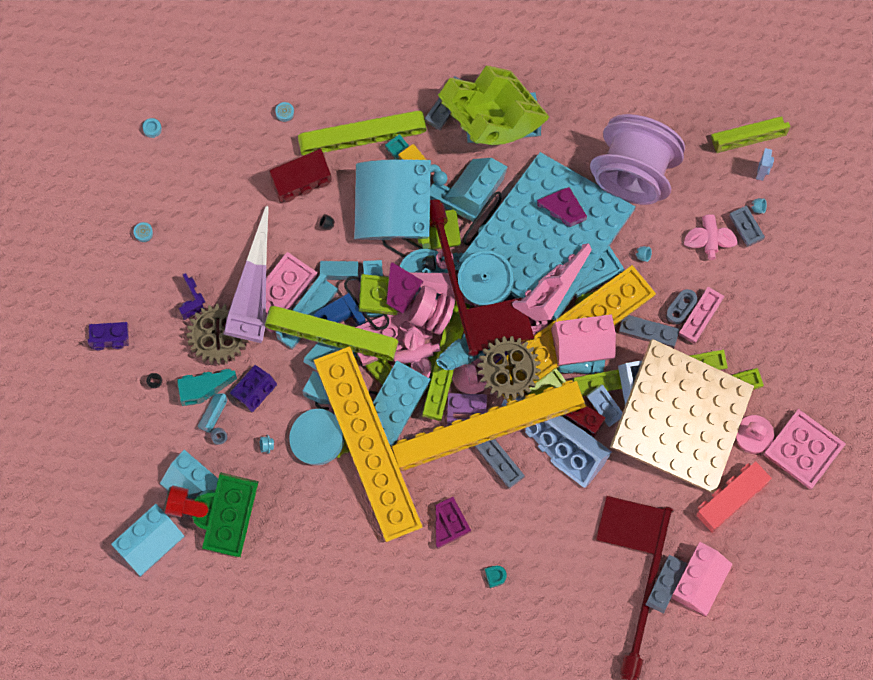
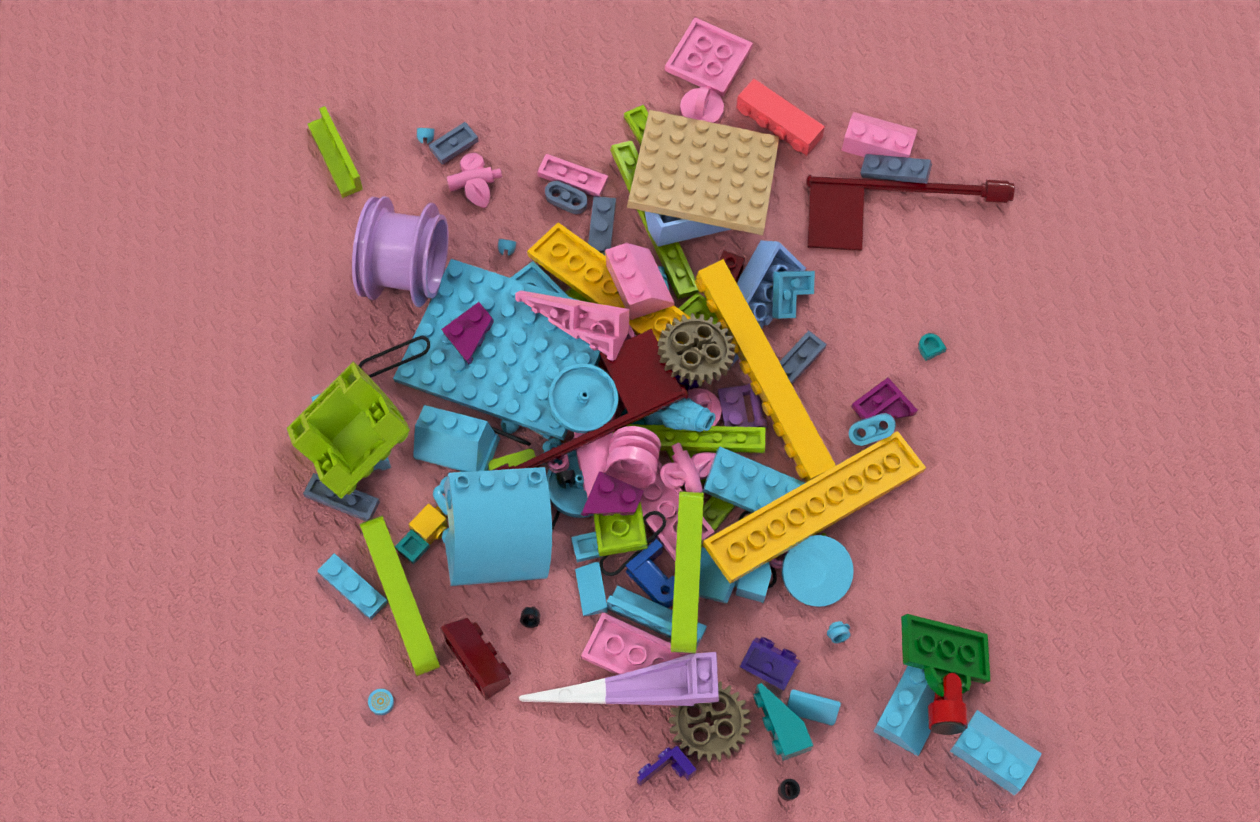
camera: 100 degrees left, 5 degrees down
(223, 434) = (841, 692): sand blue hinge -> none
(377, 102) = (352, 586): none -> medium azure plate
(426, 506) = (872, 428): none -> medium azure plate
(549, 155) = (394, 348): none -> black piece
(565, 463) = (785, 291): none -> medium azure plate
(605, 405) = (703, 256): light blue plate -> none
(765, 164) = (376, 128): light blue plate -> none

